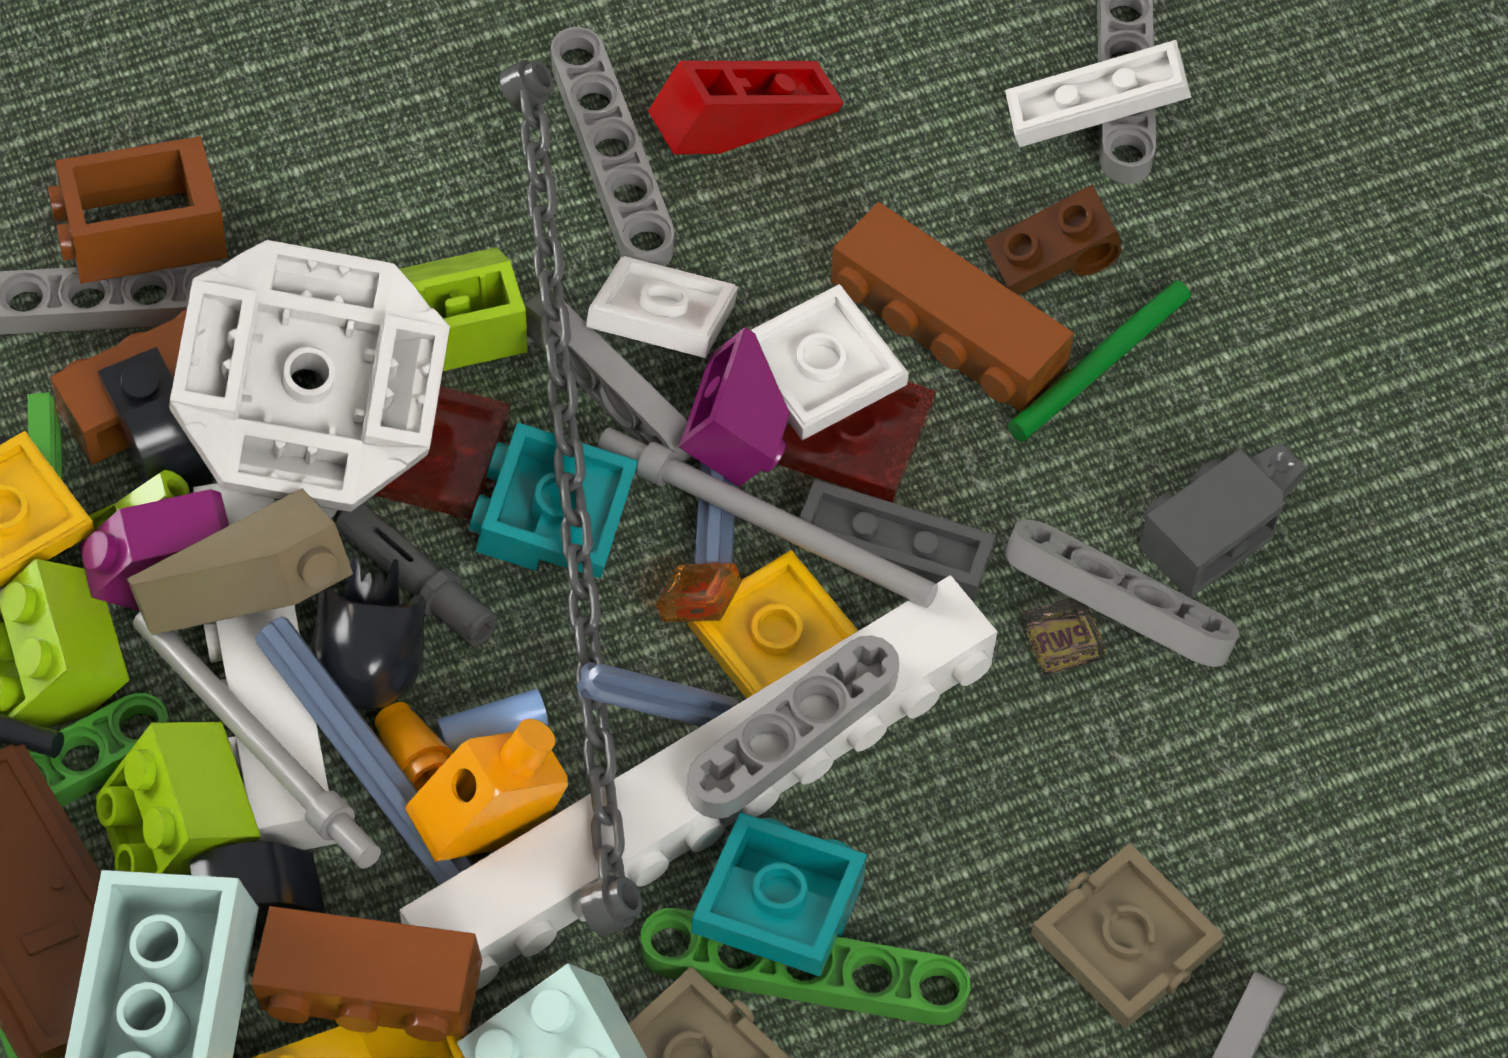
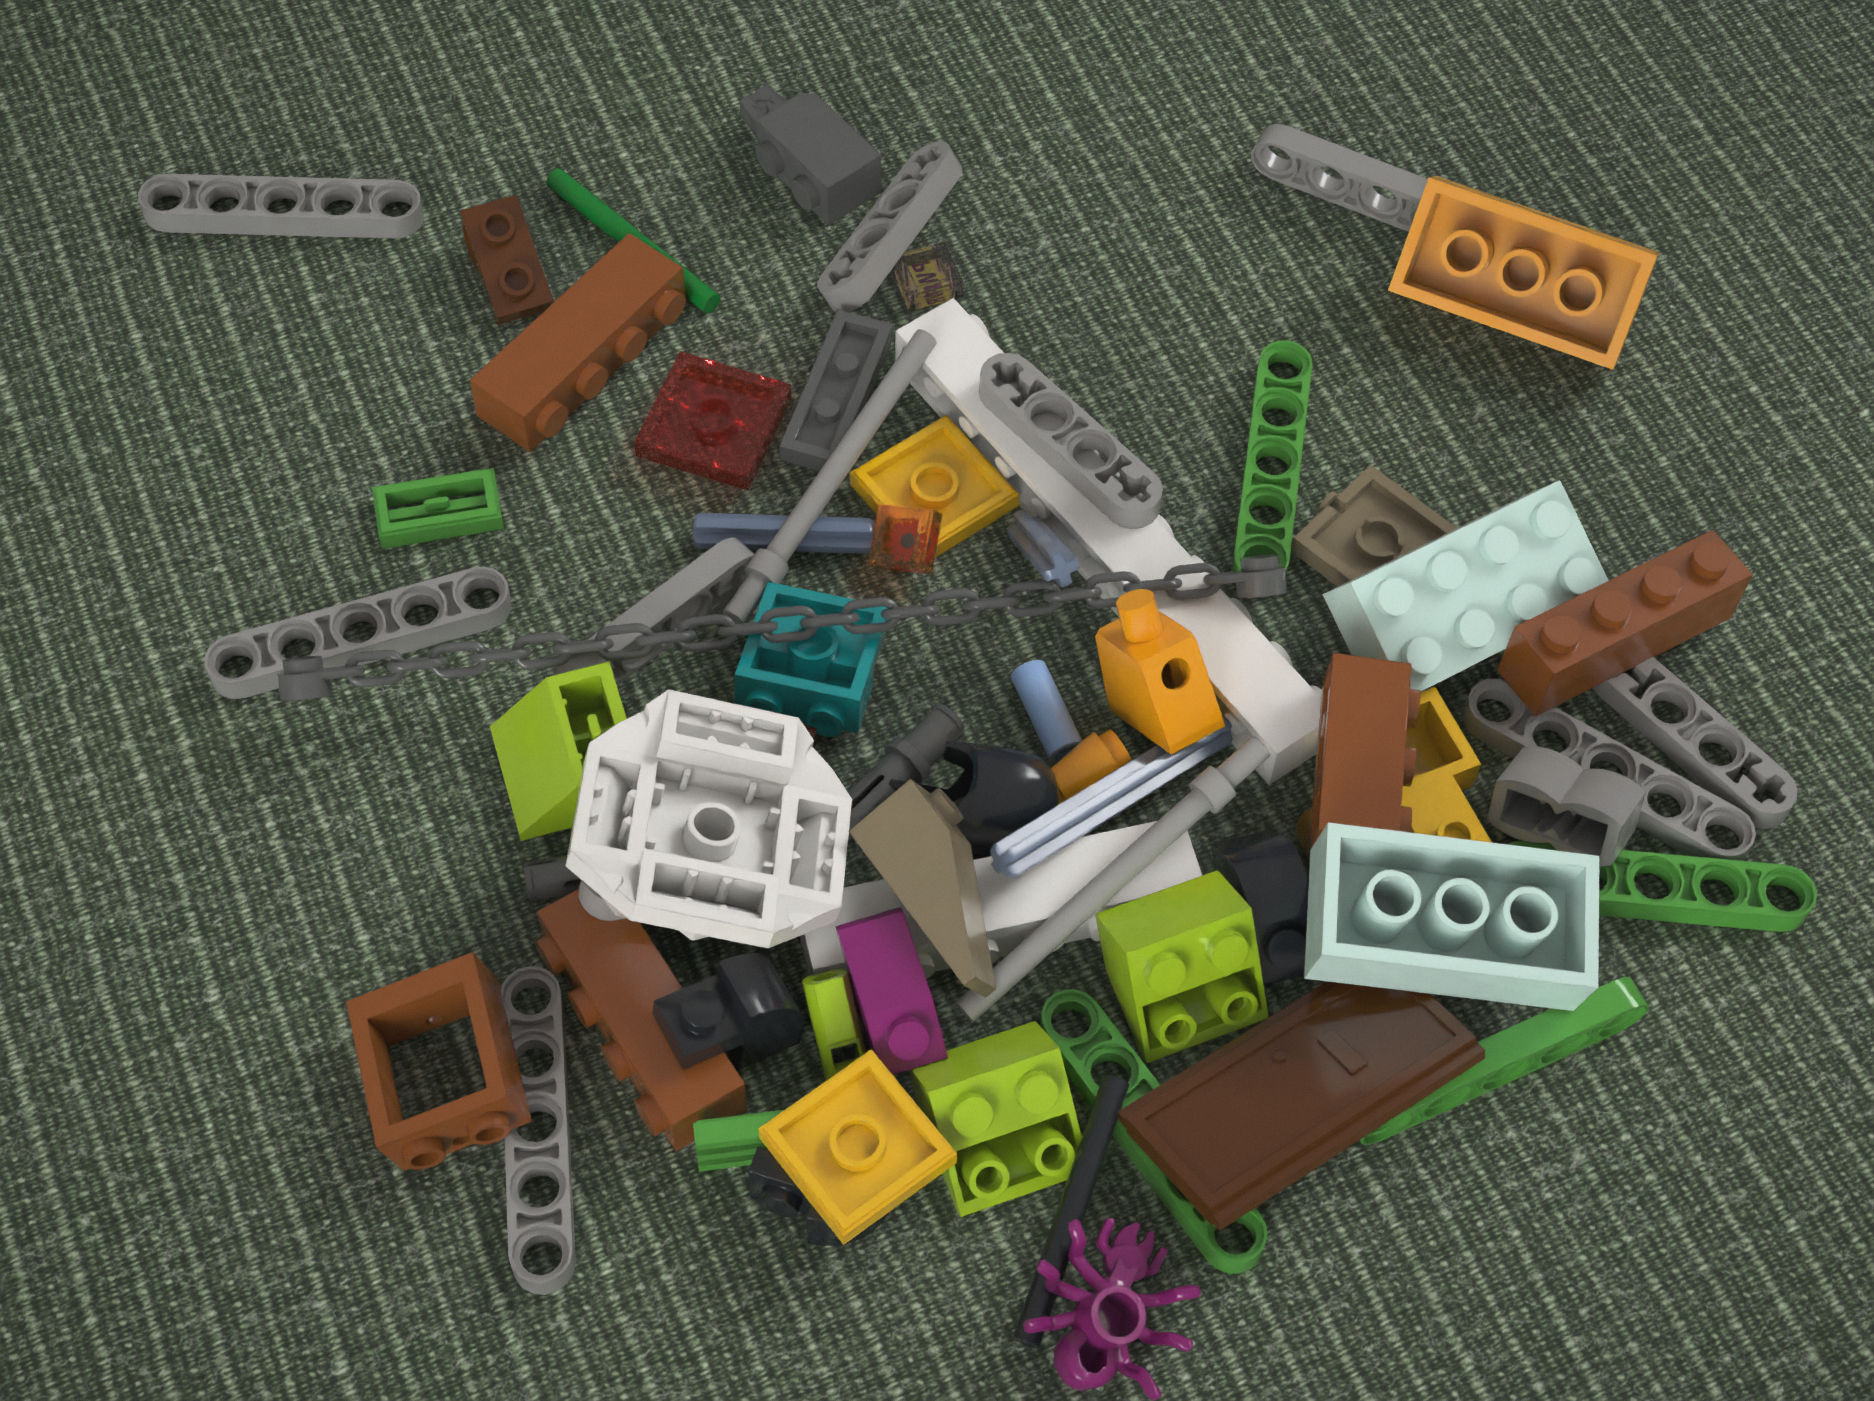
camera: 90 degrees left, 0 degrees up
(662, 306) = (578, 570): white plate -> none
(735, 103) = (322, 513): red slope -> none
(737, 412) = (714, 492): magenta slope -> none
(763, 242) = (438, 516): none -> bright green tile
(780, 893) = (1224, 463): teal plate -> none
(828, 361) = (658, 428): white plate -> none
(1097, 93) = (336, 216): white tile -> none
(1127, 935) = (1223, 235): dark tan plate -> none

